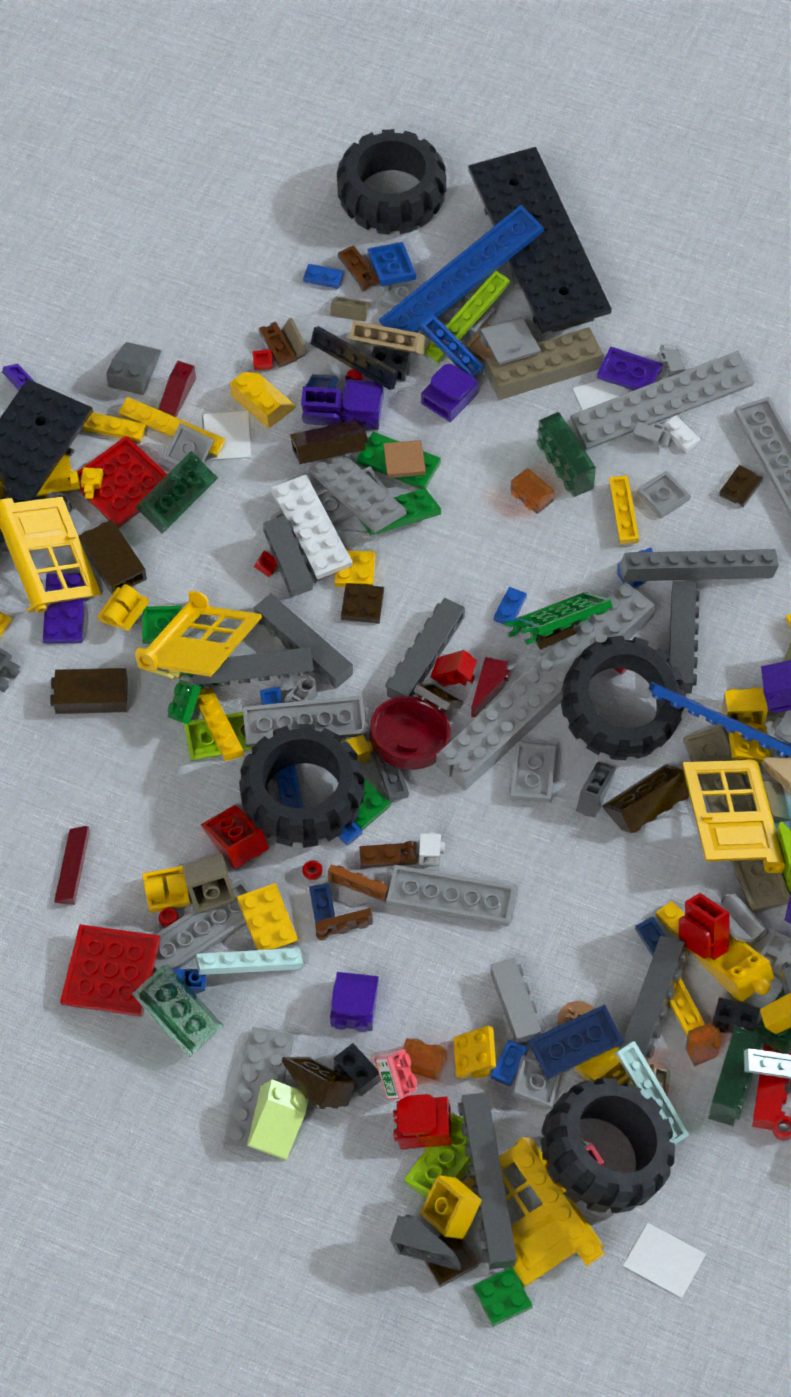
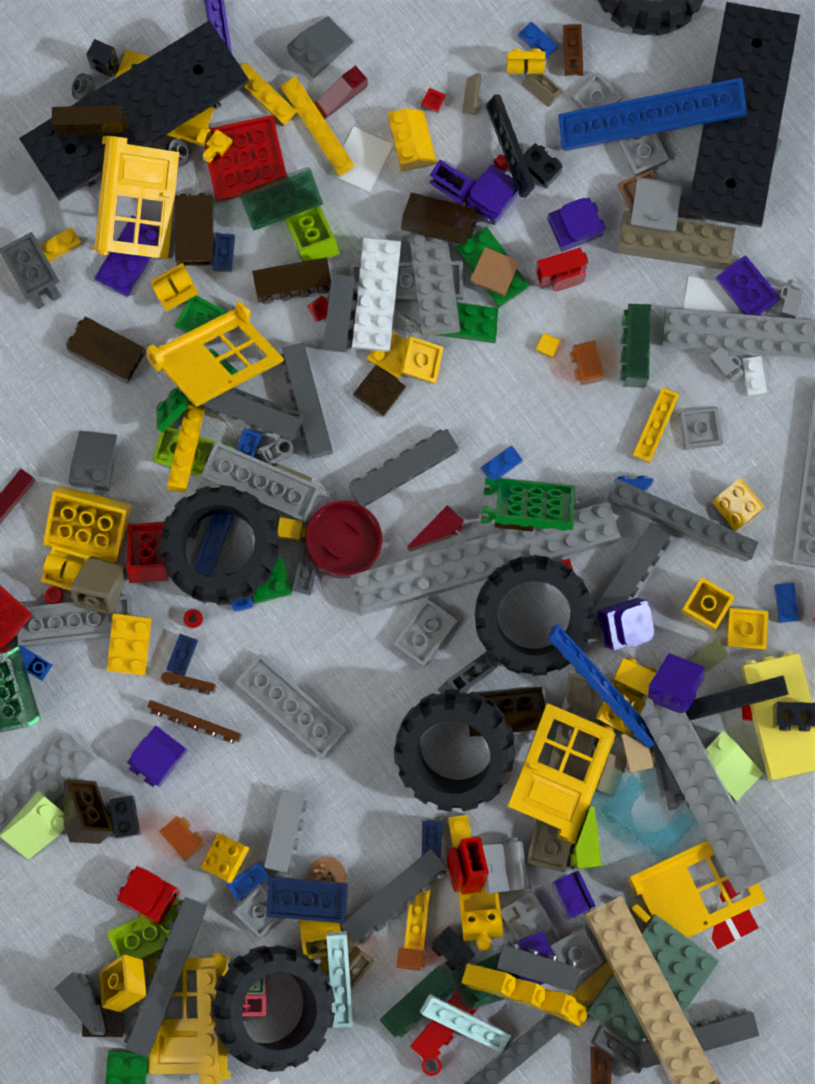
camera: 30 degrees right, 20 degrees up
(136, 788) = (93, 460): none -> dark grey slope
(151, 562) = (224, 252): none -> dark blue plate
(162, 840) = (87, 523): none -> yellow slope
(188, 440) = (318, 156): light grey plate -> none
(222, 510) = (312, 235): none -> lime slope
(228, 550) = (292, 280): none -> dark brown slope
(249, 961) = (92, 675): light aqua plate -> none
(277, 344) = (455, 91): reddish brown plate -> none
(322, 381) = (467, 156): dark blue tile -> none
(325, 289) = (532, 59): none -> yellow plate
(358, 882) = (222, 651): dark orange plate -> none
(370, 953) = (194, 722): none -> reddish brown plate
(385, 557) = (421, 360): none -> yellow plate
(388, 338) = (551, 142): tan brick -> none
(388, 854) = (261, 639): reddish brown plate -> none
(391, 264) = (603, 63): blue plate -> none
(396, 1074) = (148, 844): coral slope -> none
(430, 848) = (299, 655): white brick -> none
(442, 699) = (386, 520): dark brown plate -> none
(451, 346) = (601, 182): blue brick -> none
(454, 669) = (414, 501): red brick -> none
(462, 429) = (562, 270): none -> red brick
(471, 311) = (634, 157): lime plate -> none
(487, 496) = (548, 345): none -> yellow tile
(672, 824) = (441, 790): none -> black tyre
(707, 668) = (626, 624): none -> brick
(736, 531) = (738, 504): none -> yellow plate
(741, 486) = (774, 457): dark brown plate -> none
(765, 621) = (707, 604): none -> yellow brick

